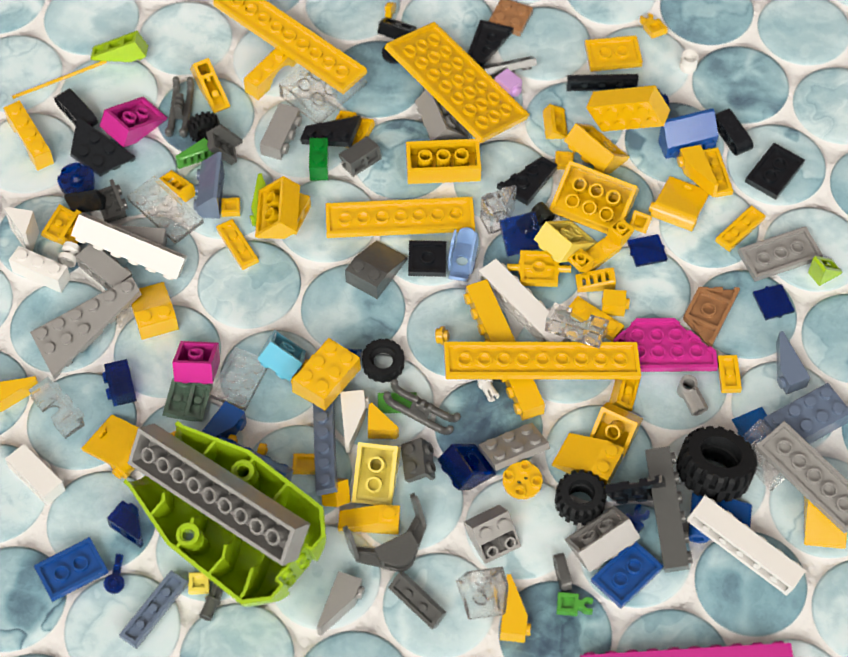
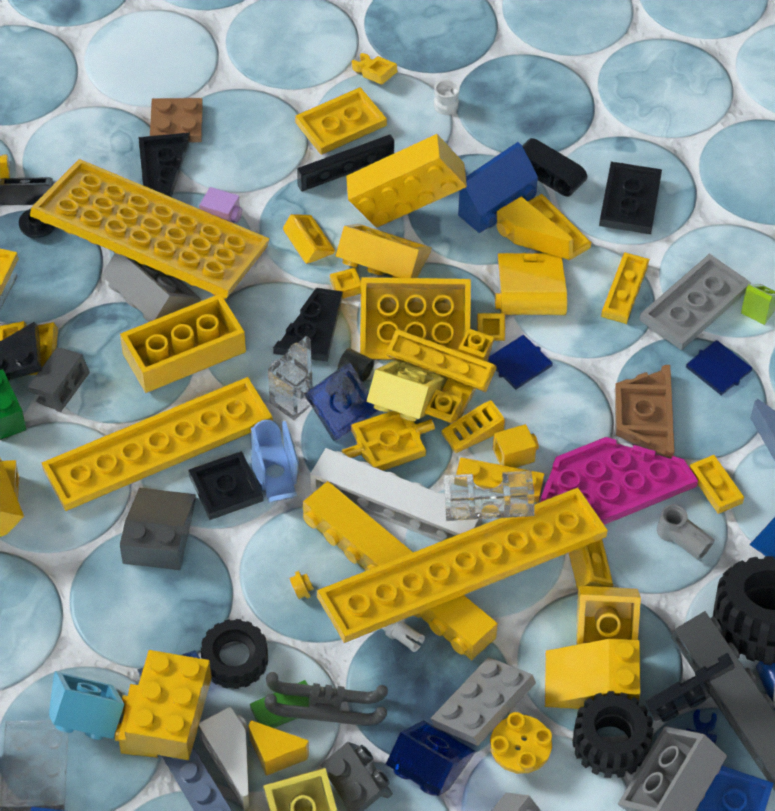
camera: 25 degrees left, 5 degrees down
(522, 63) = (228, 174): plate -> none
(595, 231) = (441, 360): none -> yellow tile

